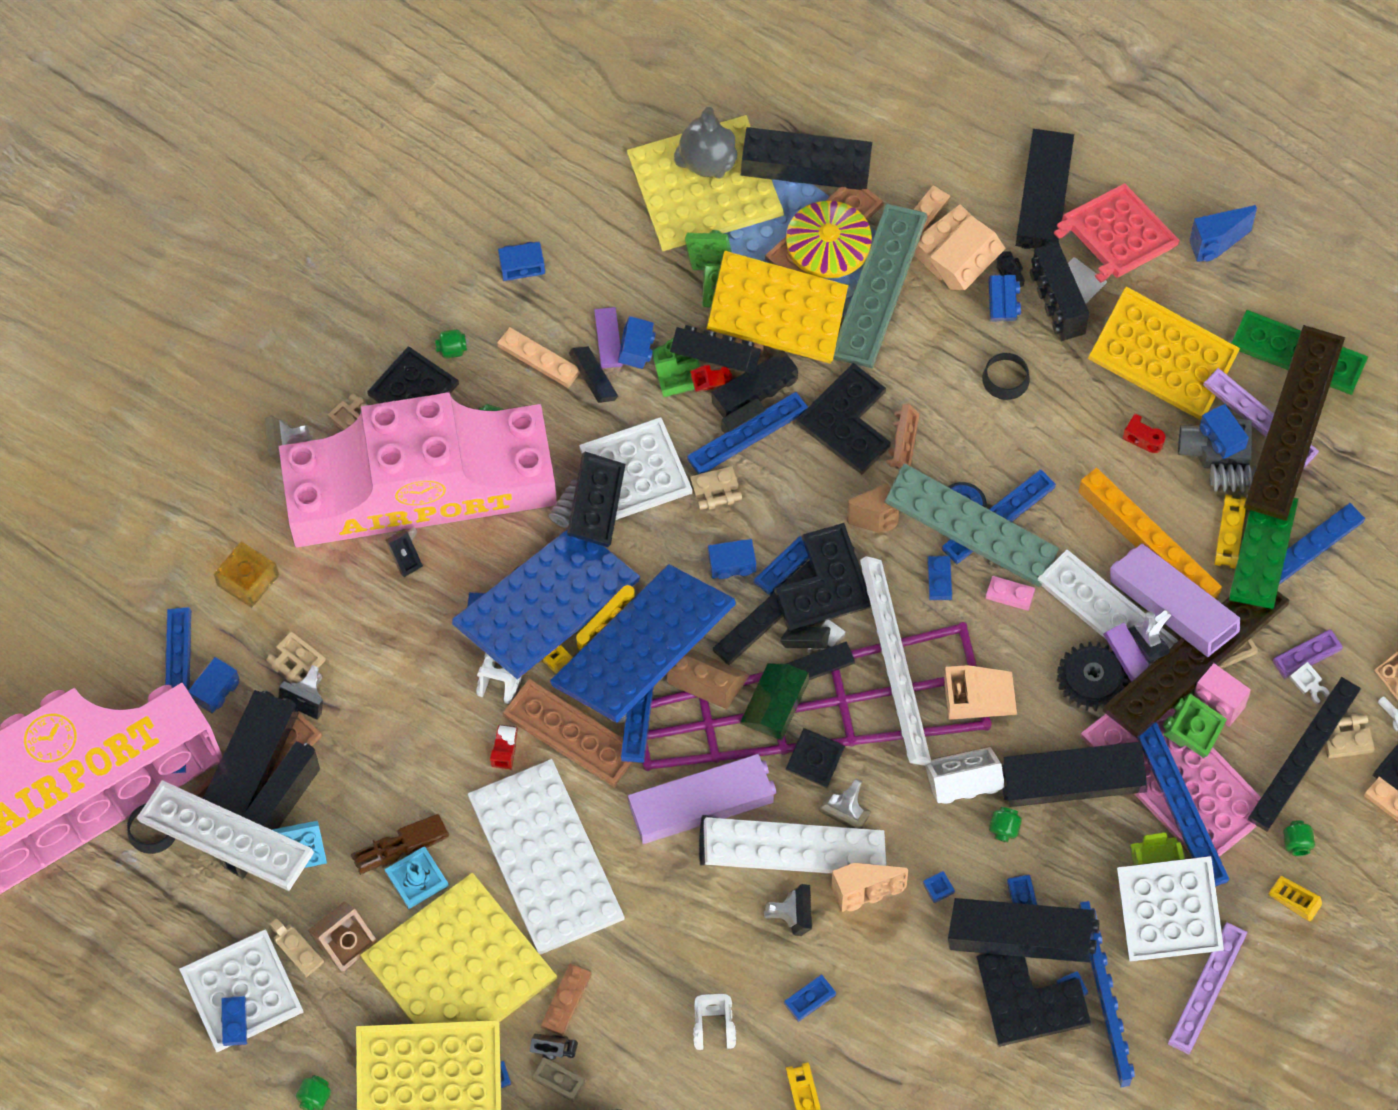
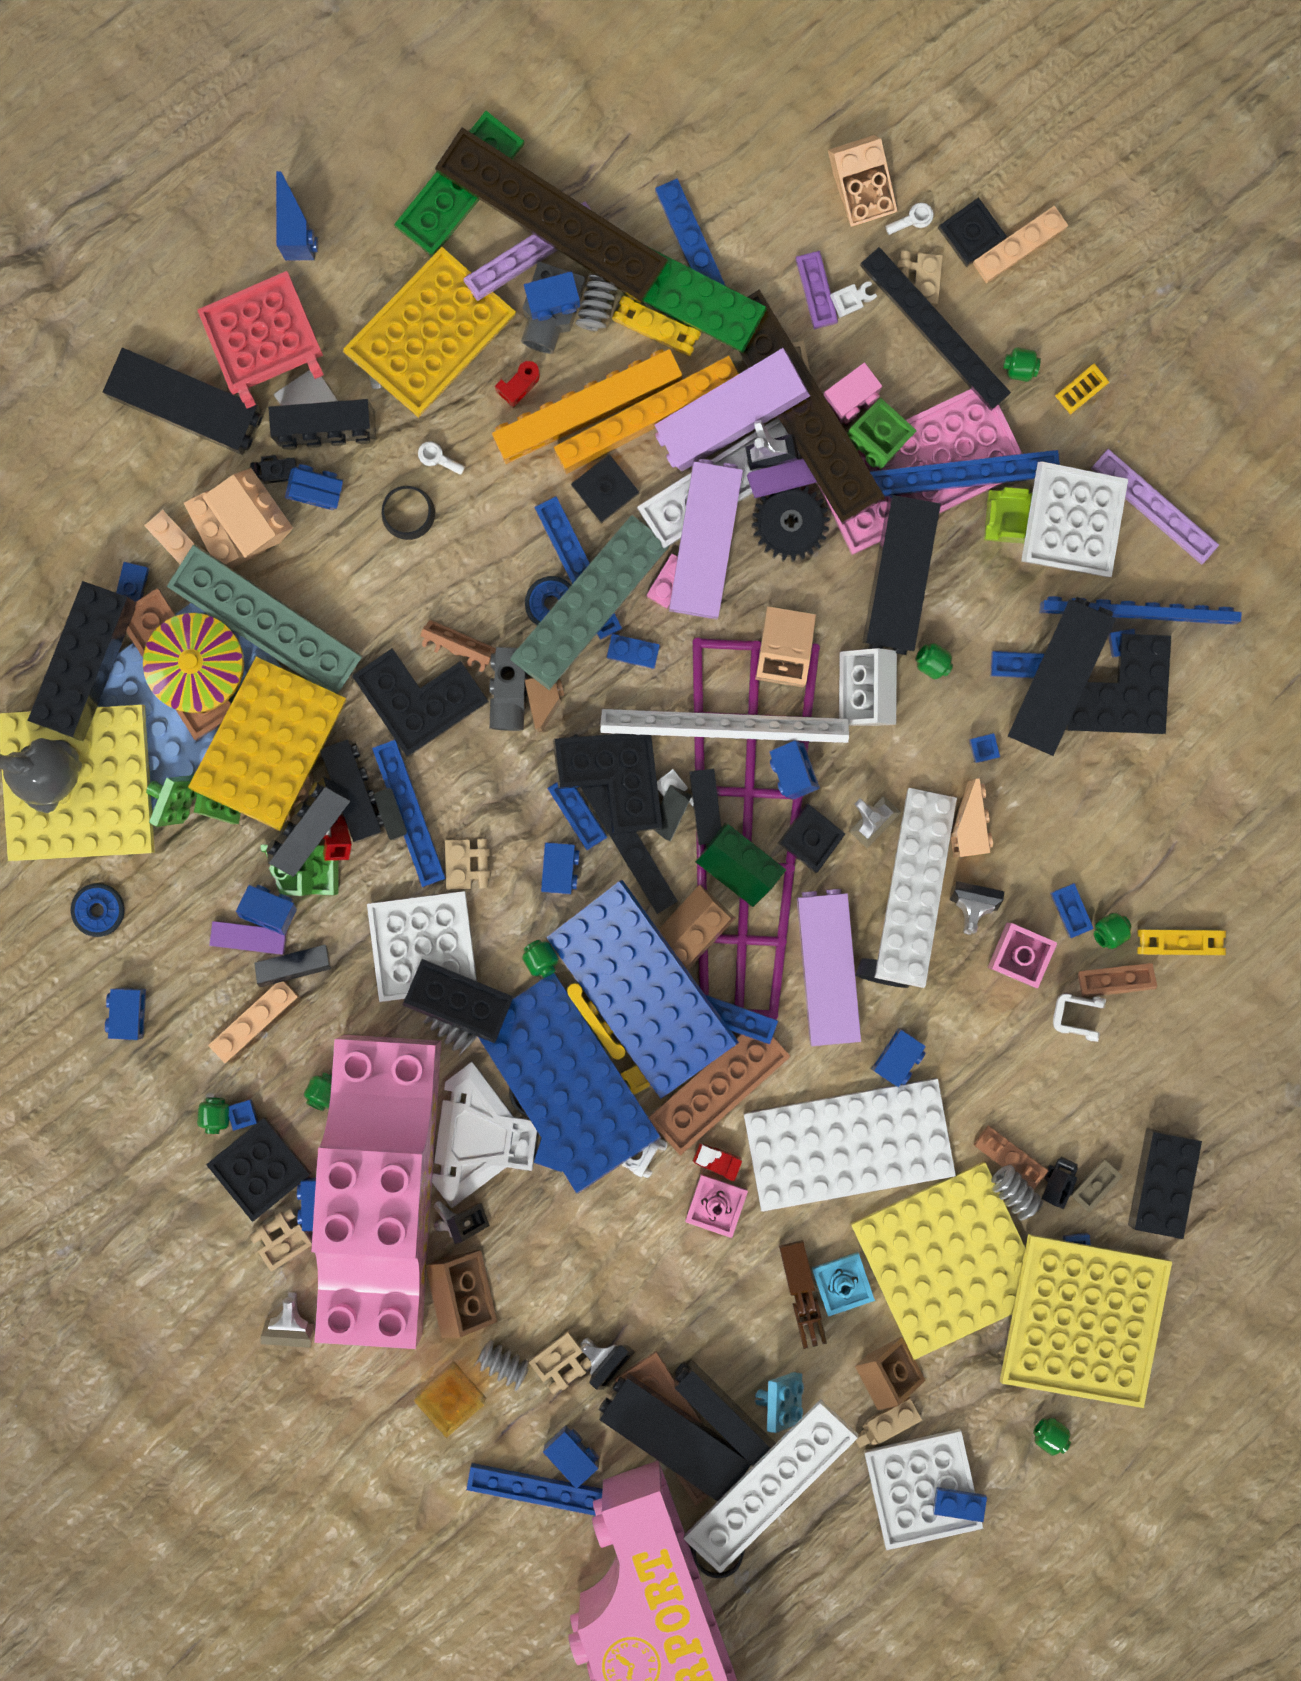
camera: 80 degrees left, 25 degrees up
(283, 611) = (502, 1364): none -> light grey piece
(340, 566) = (461, 1294): none -> medium nougat slope
(456, 364) = (242, 1114): none -> blue plate
(464, 746) = (716, 1206): none -> bright pink plate
(479, 548) = (478, 1137): none -> white plate
(534, 1005) = (1016, 1192): none -> light grey piece
(600, 211) = (112, 914): none -> blue wheel
(635, 877) = (899, 1057): none -> blue brick
(649, 561) = (540, 958): none -> green head
(756, 1050) = (1117, 980): none -> nougat plate
(757, 959) = (1022, 955): none -> bright pink brick
(800, 1037) = (1112, 931): none -> green head
(870, 476) = (510, 696): none -> dark grey brick
(872, 725) = (793, 770): none -> blue brick
(884, 187) = (132, 581): none -> blue plate
(1054, 605) = (705, 539): none -> lavender brick
(1060, 383) = (431, 455): none -> white plate
(1075, 523) = (605, 488): none -> black plate
(1139, 487) = (587, 406): none -> light orange brick

